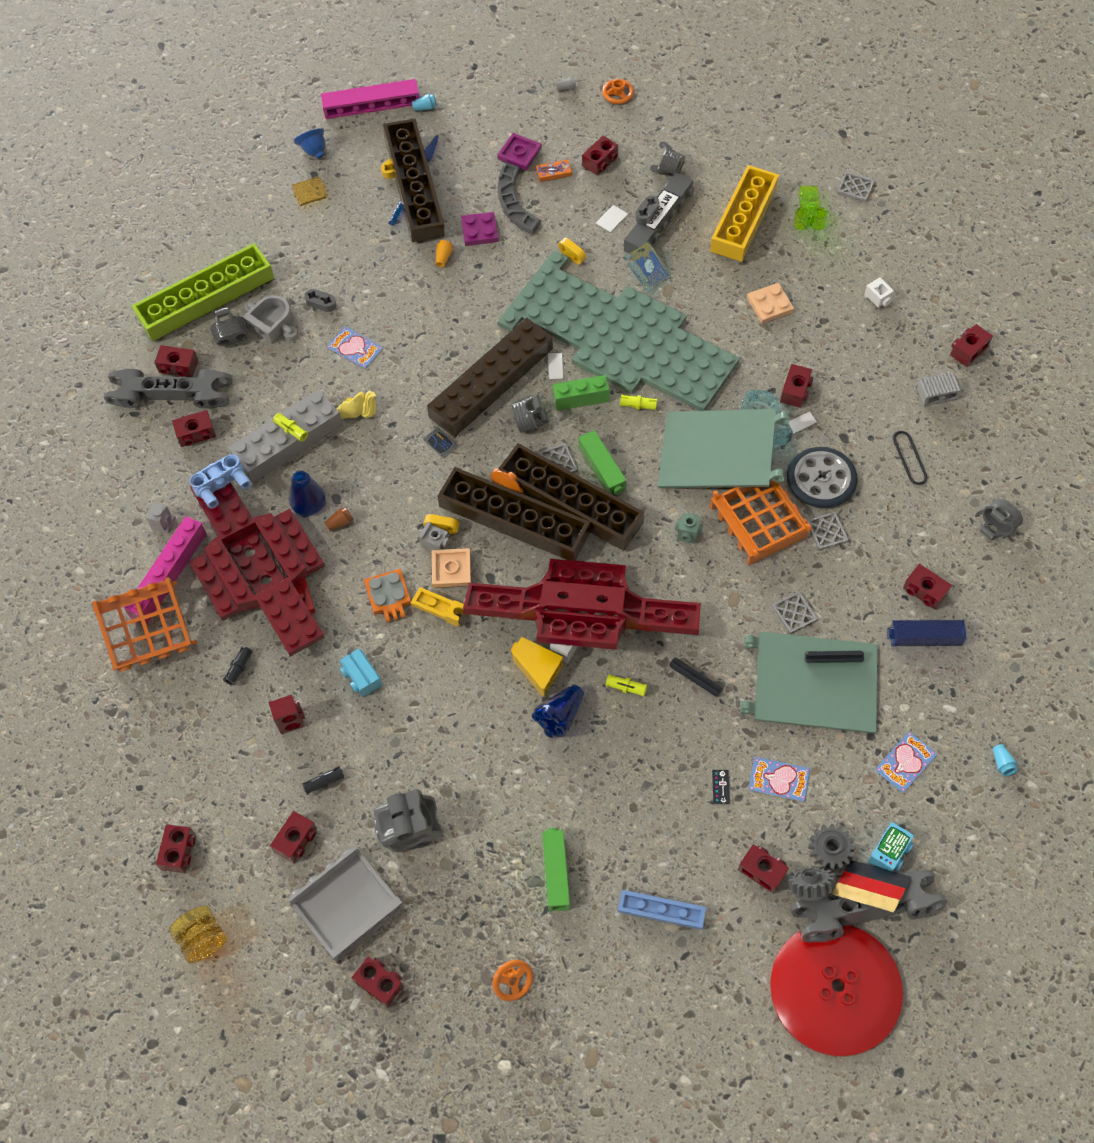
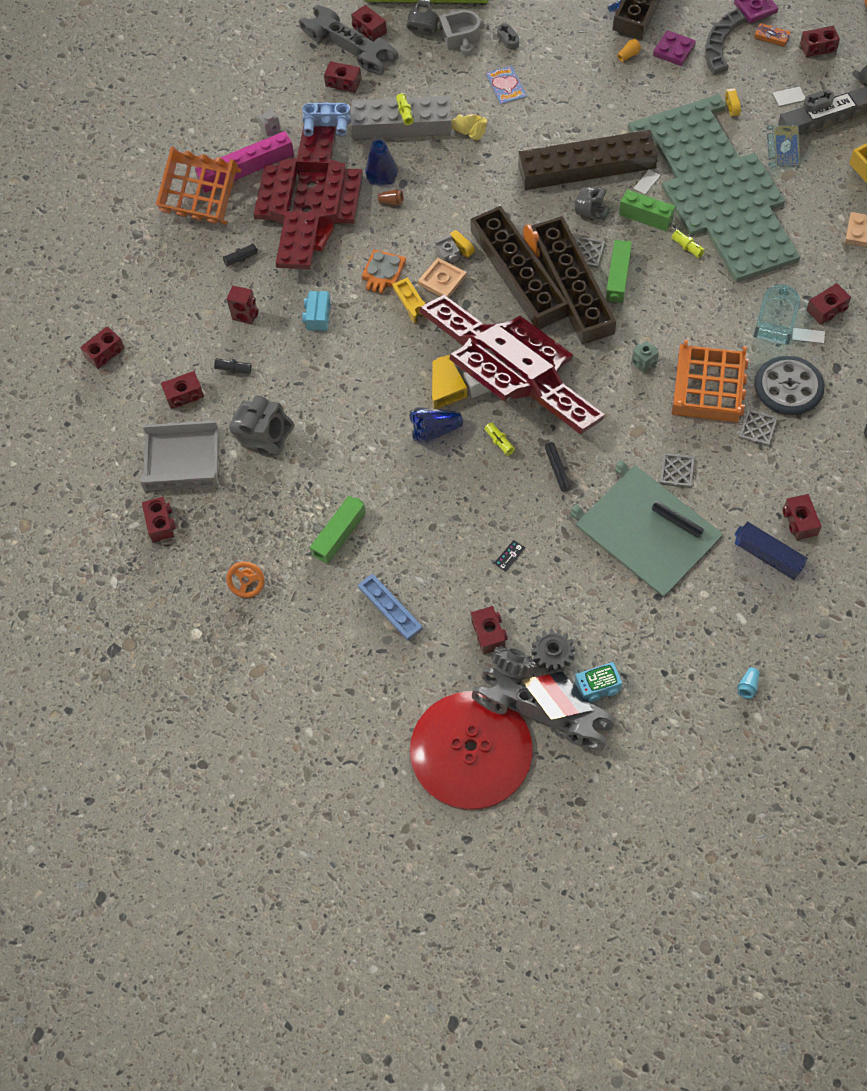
camera: 40 degrees right, 0 degrees up
(197, 934) = (69, 408): clear yellow wheel -> none
(440, 442) = (511, 187): sticker -> none
(720, 448) = (721, 313): sand green flag -> none
(779, 779) = (558, 579): sticker -> none
(905, 762) = (669, 633): sticker -> none

